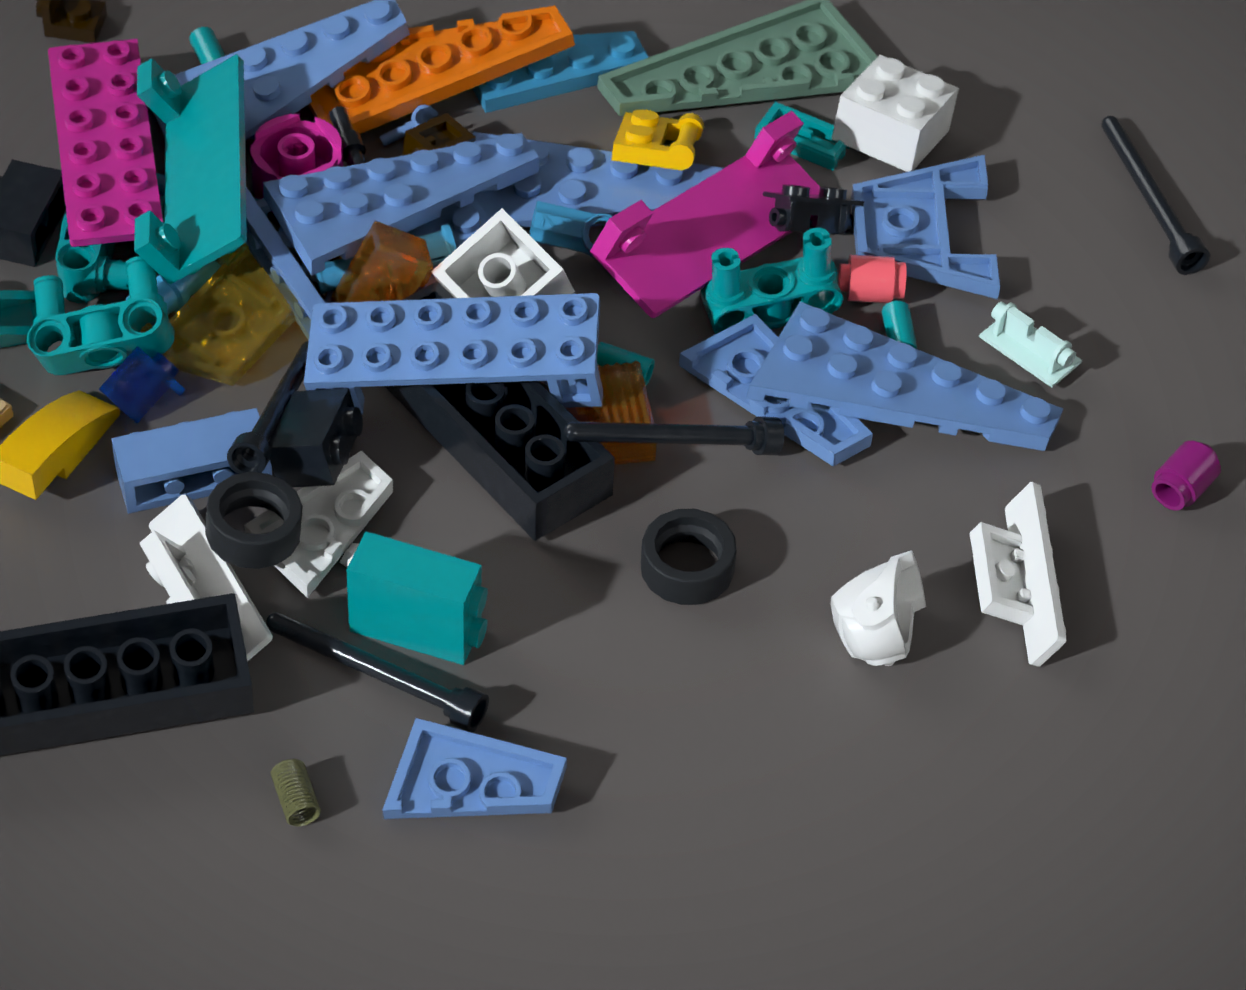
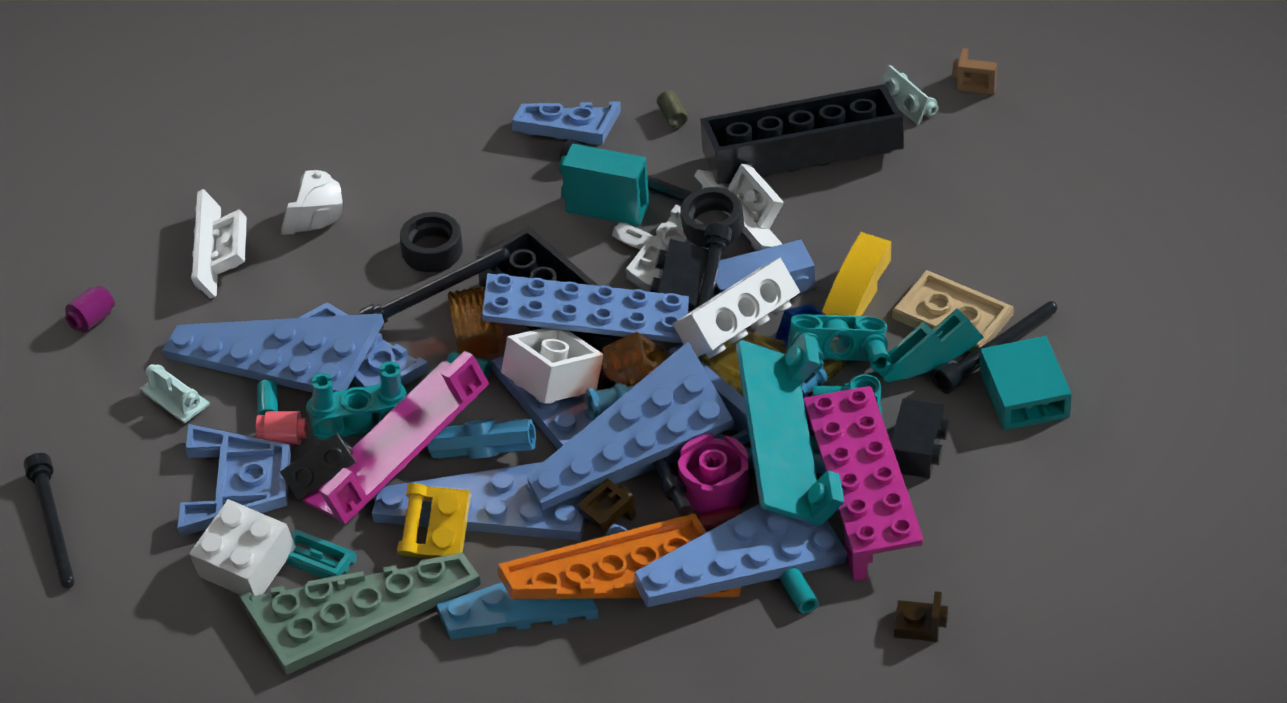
camera: 175 degrees left, 5 degrees down
(236, 340) = (737, 308): none -> white brick

